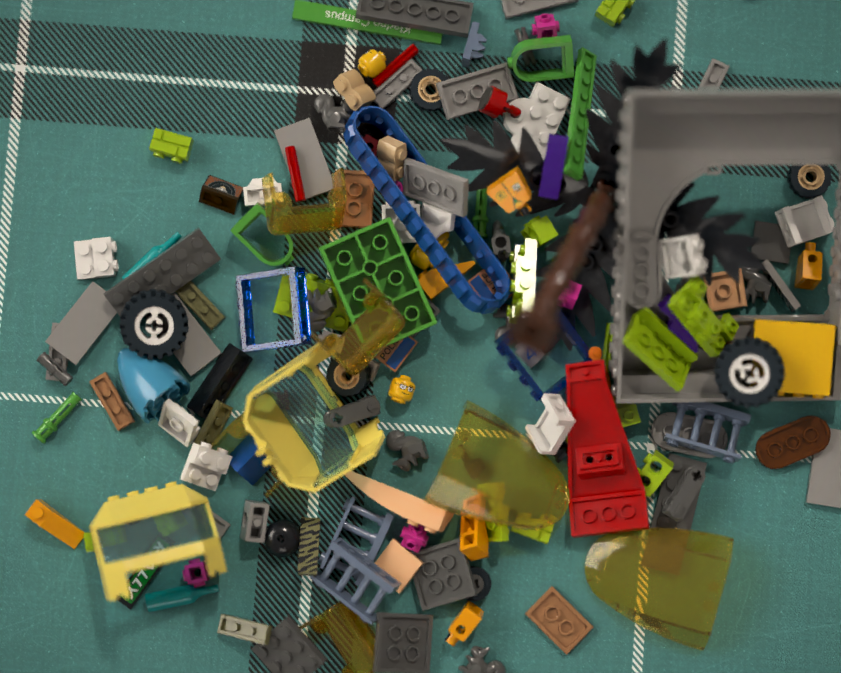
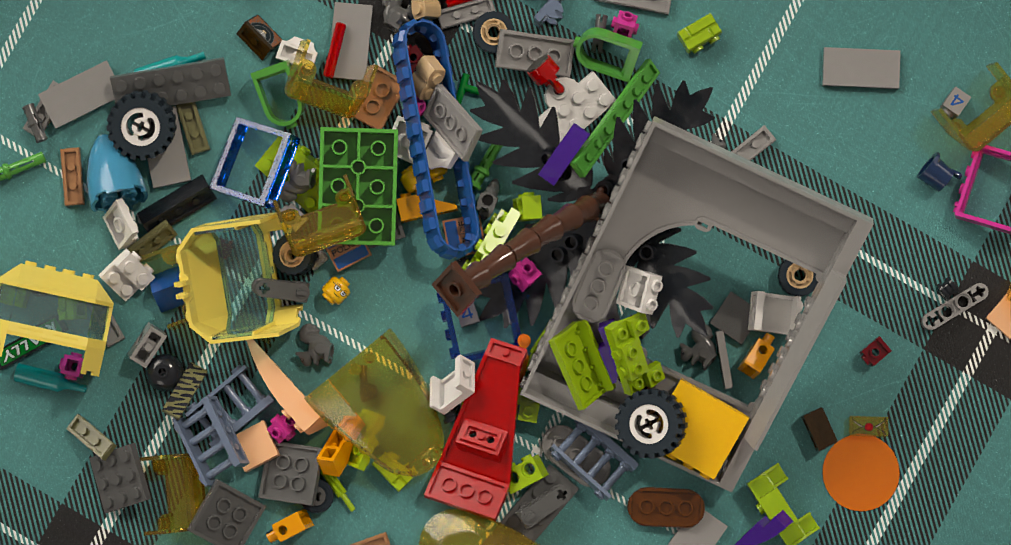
camera: 25 degrees right, 0 degrees up
(96, 258) = (119, 41): white plate -> none
(427, 152) = (464, 87): none -> green piece
(491, 568) = (339, 490): none -> lime axle
(511, 192) = (516, 159): light orange torso -> none
(725, 292) = (667, 345): light nougat tile -> none

